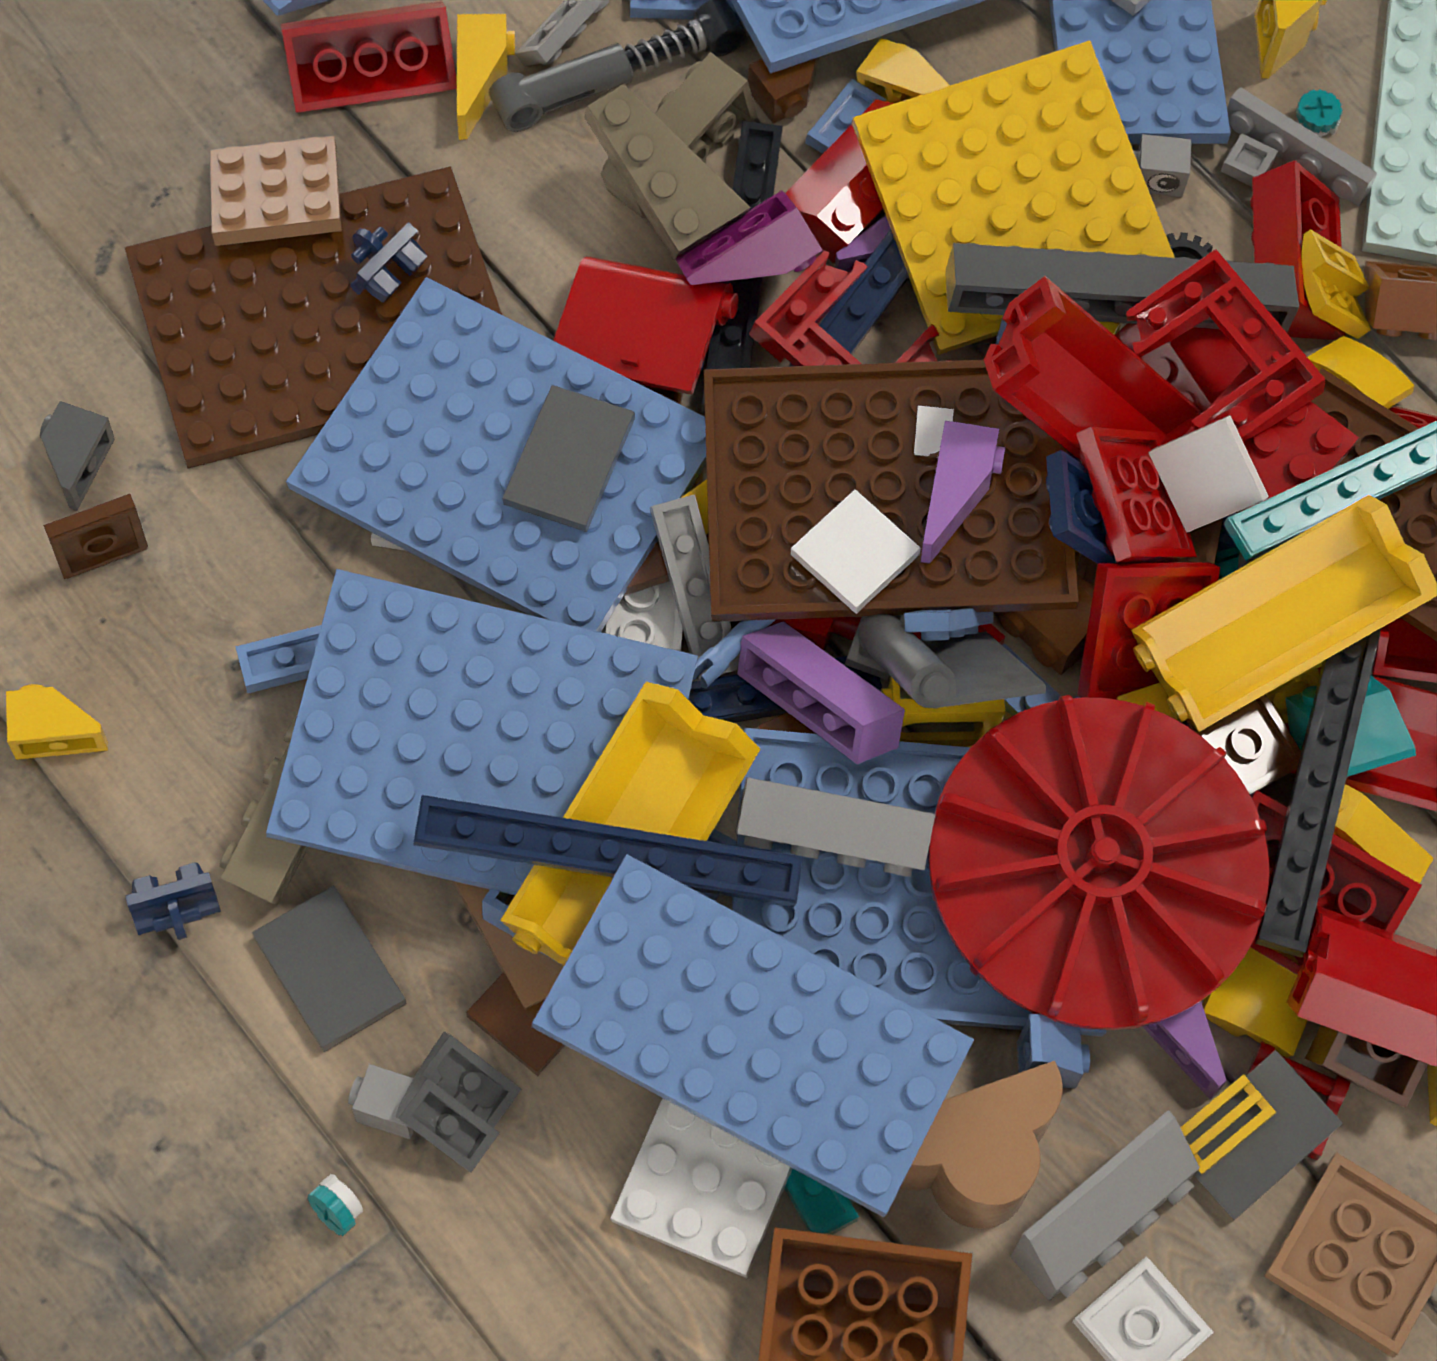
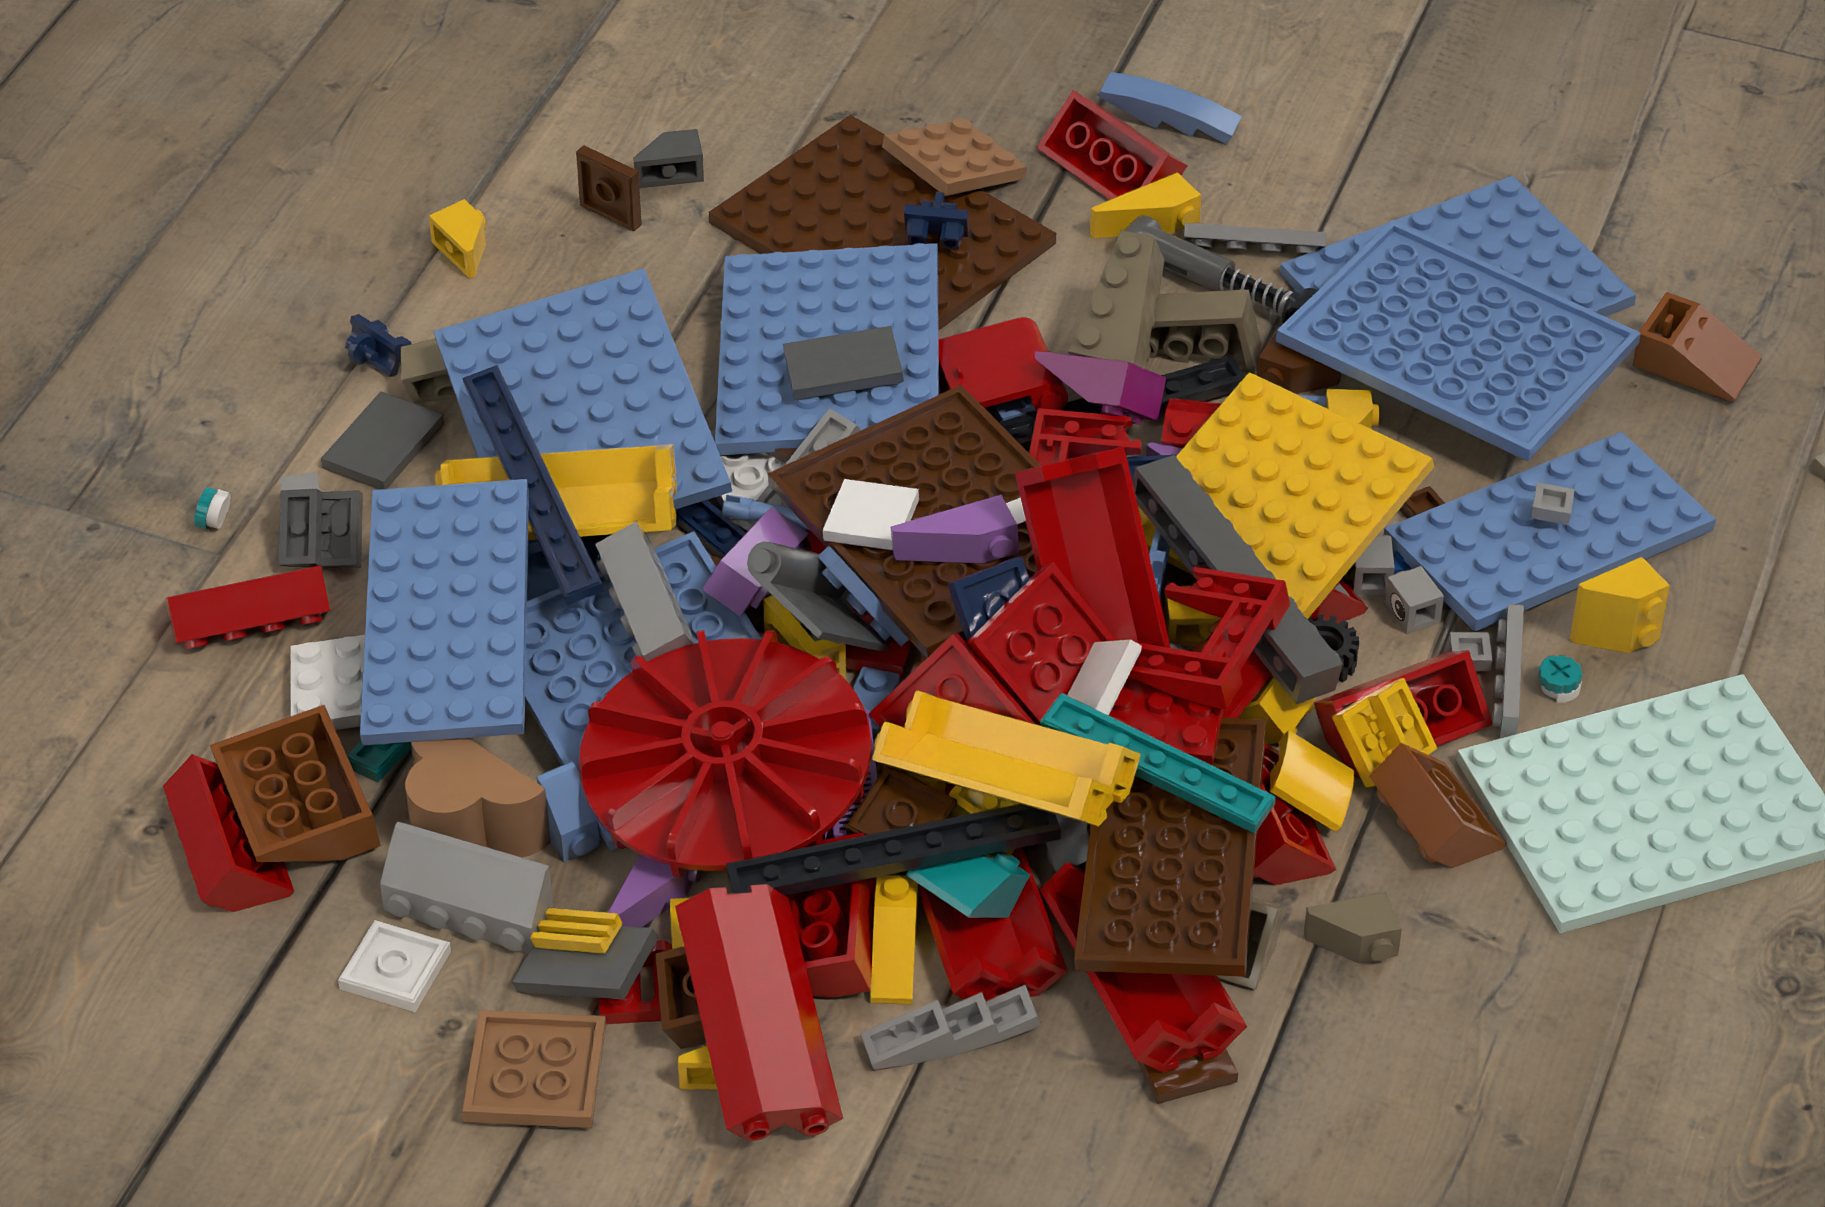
camera: 65 degrees right, 20 degrees down
(517, 1236) = (247, 605): none -> red slope

